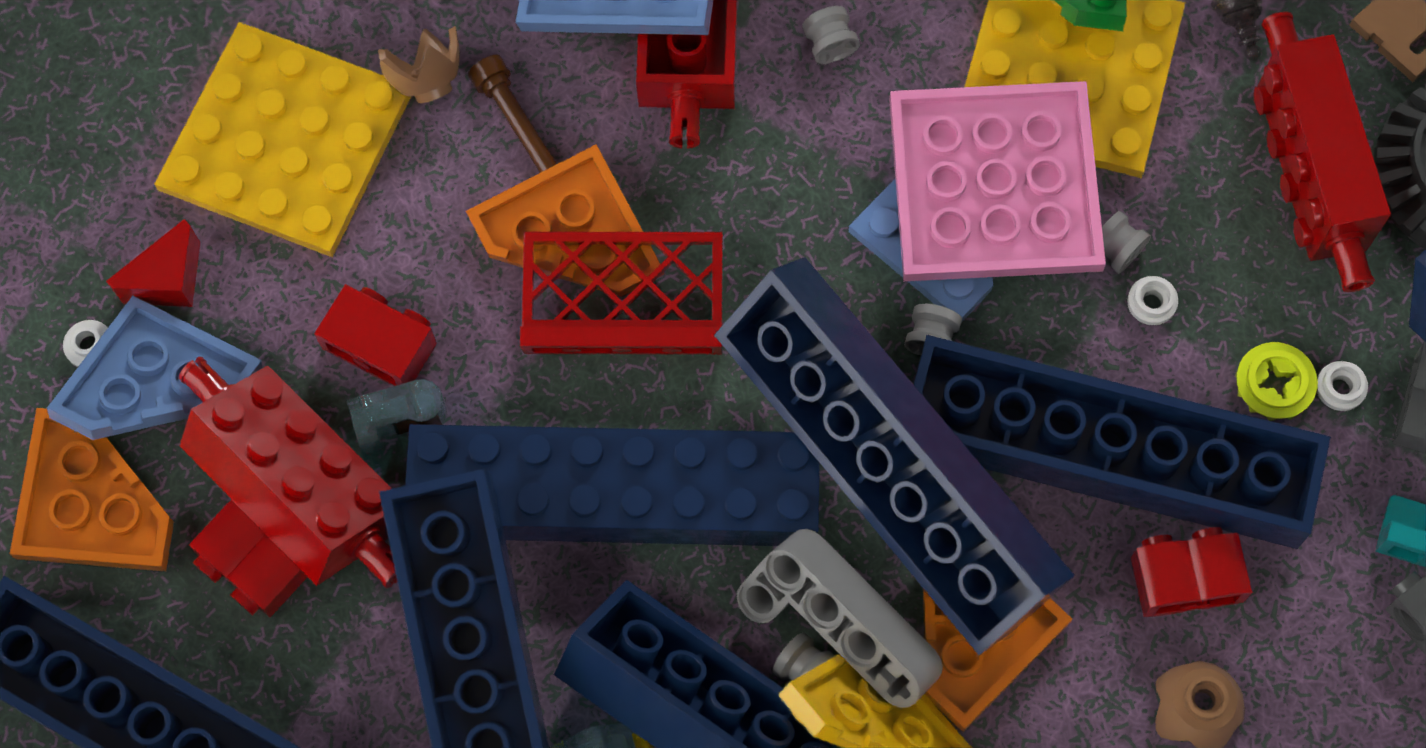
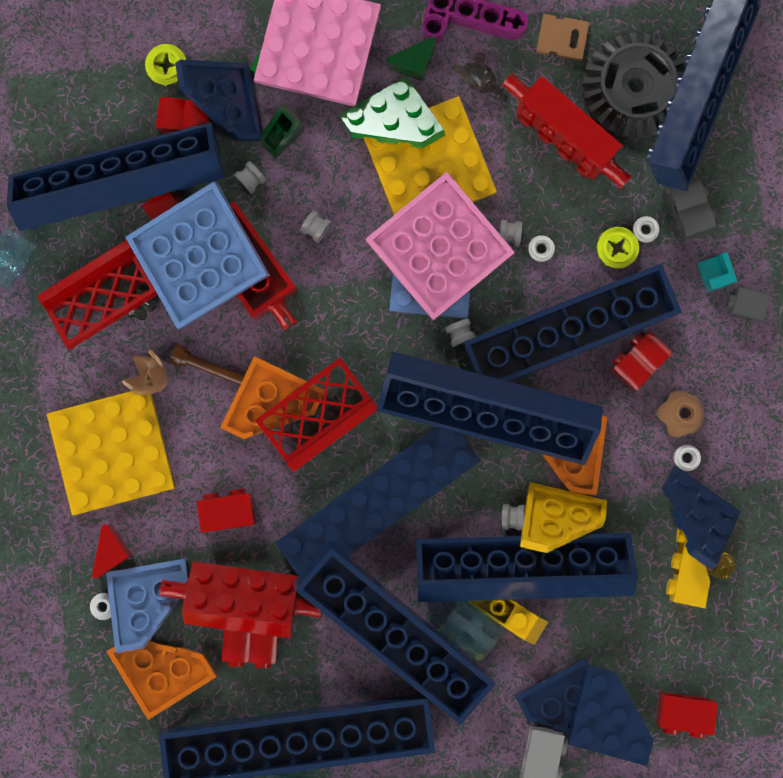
camera: 35 degrees left, 15 degrees up
(392, 410) = (263, 532): clear light blue leg -> none
(845, 613) = (516, 486): light grey beam -> none

